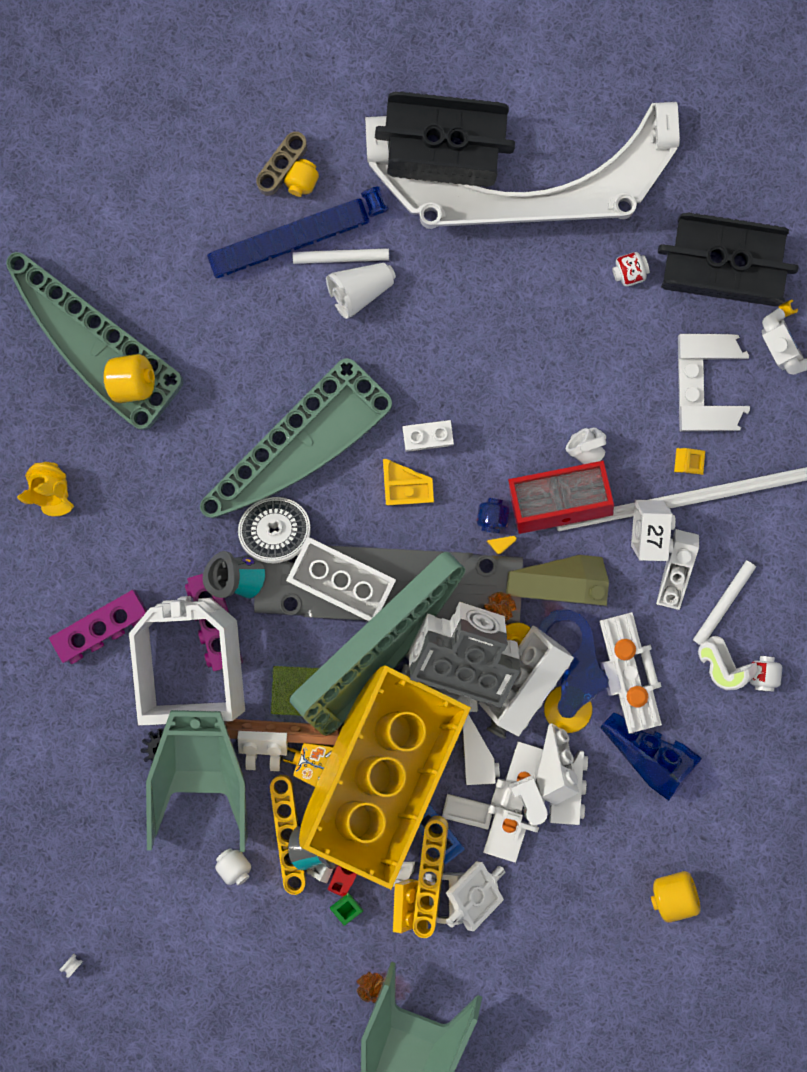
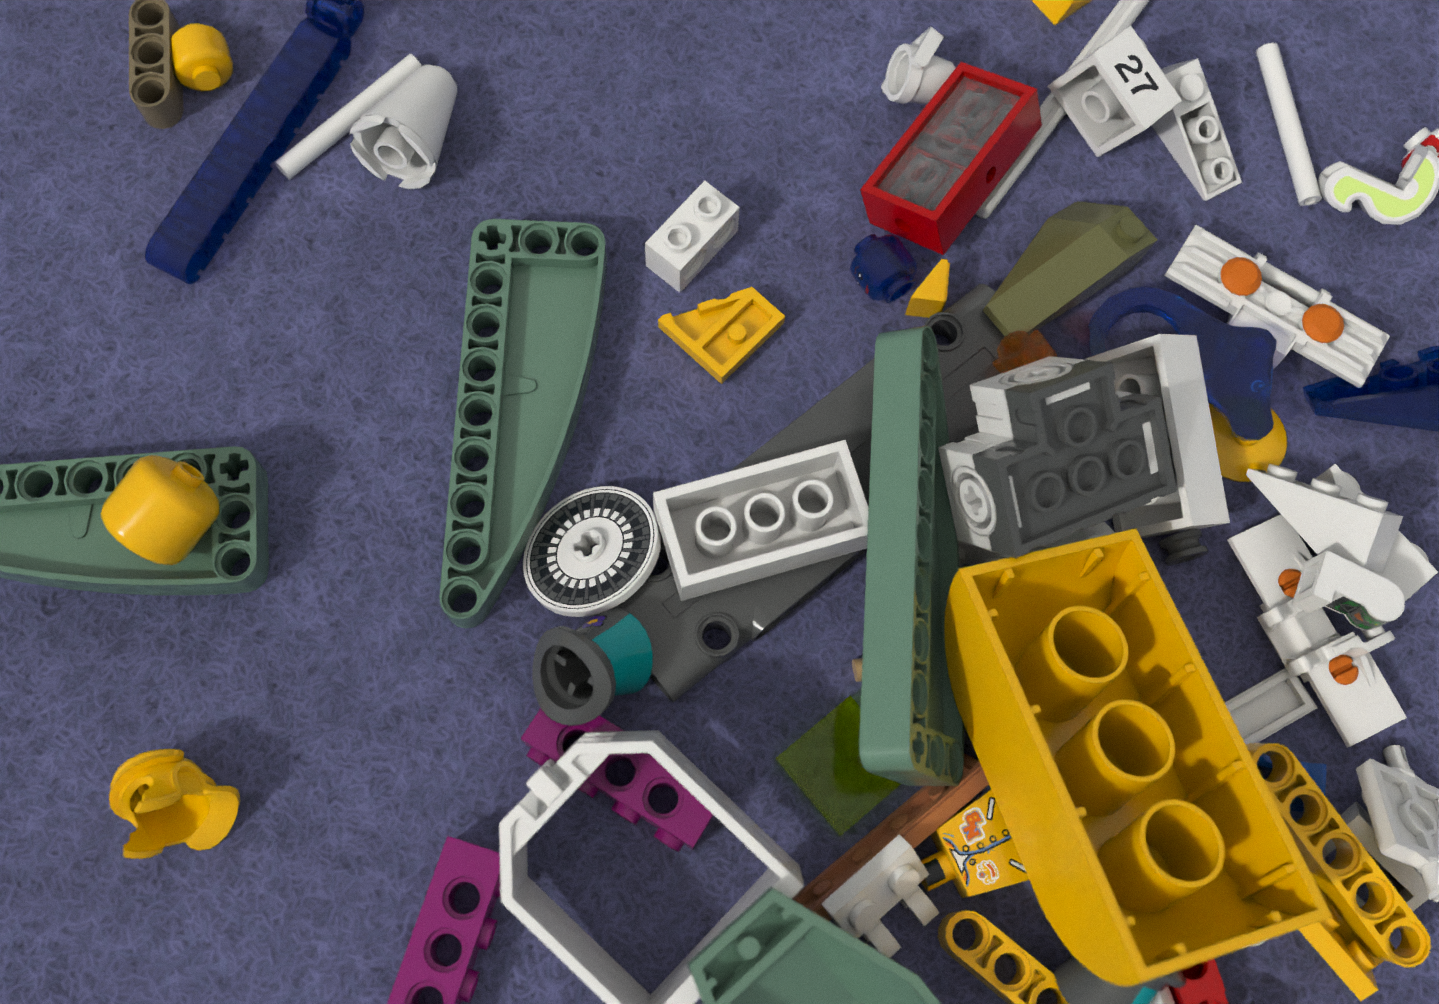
camera: 50 degrees left, 15 degrees down
(478, 759) = (1214, 617): white slope -> none

